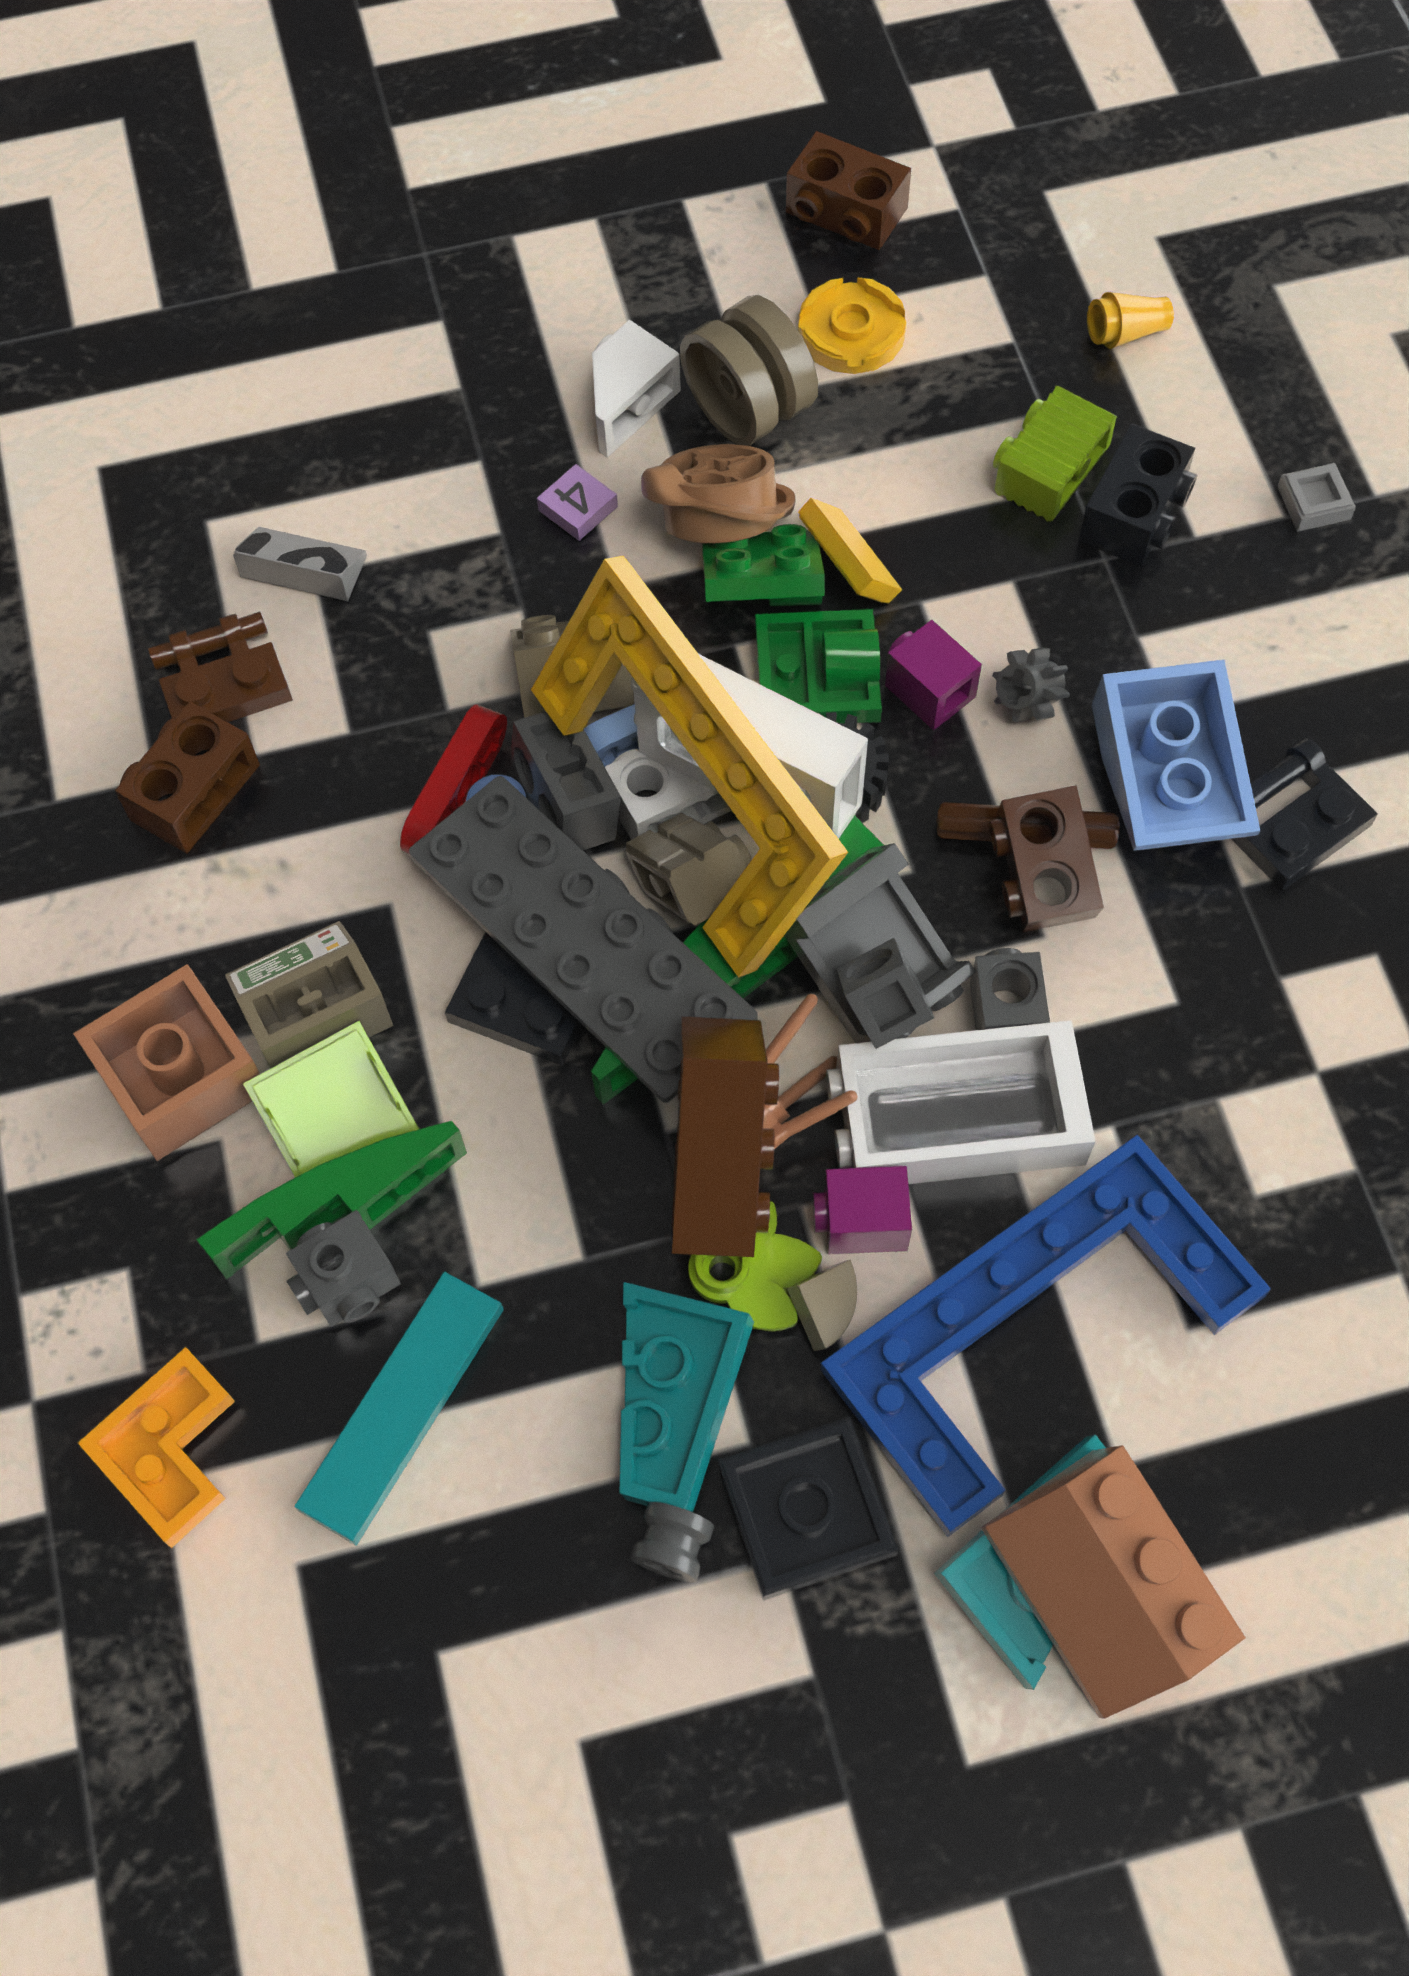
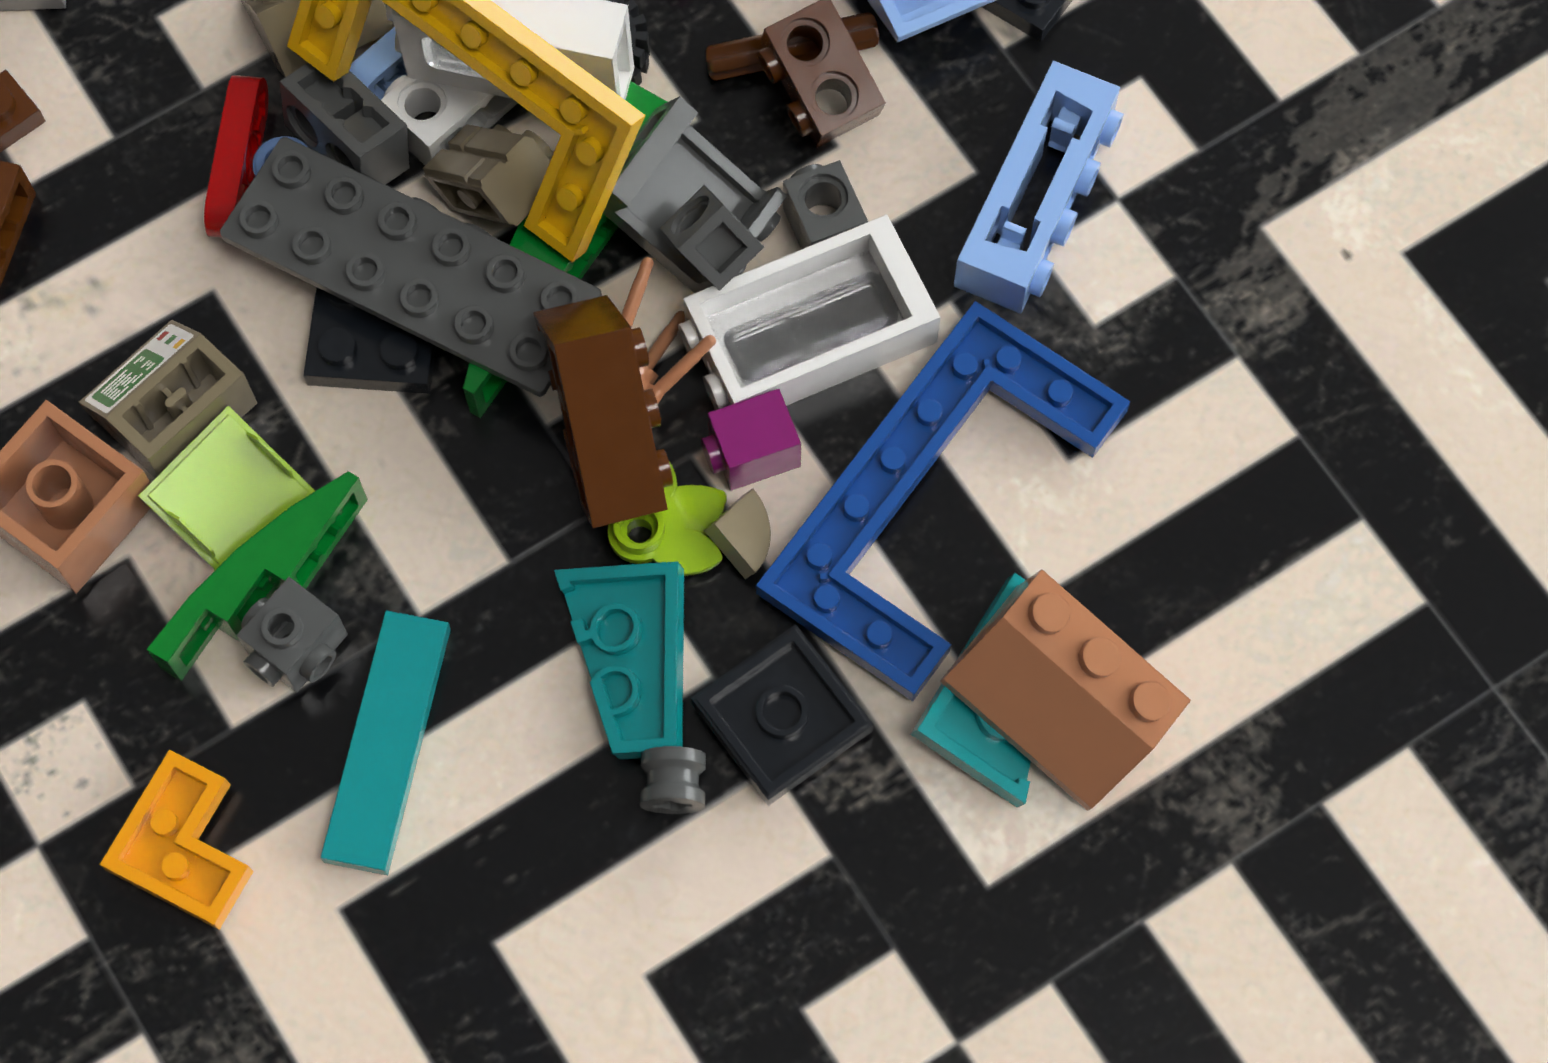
camera: 20 degrees left, 5 degrees up
(1299, 965) = (1003, 270): none -> light blue brick

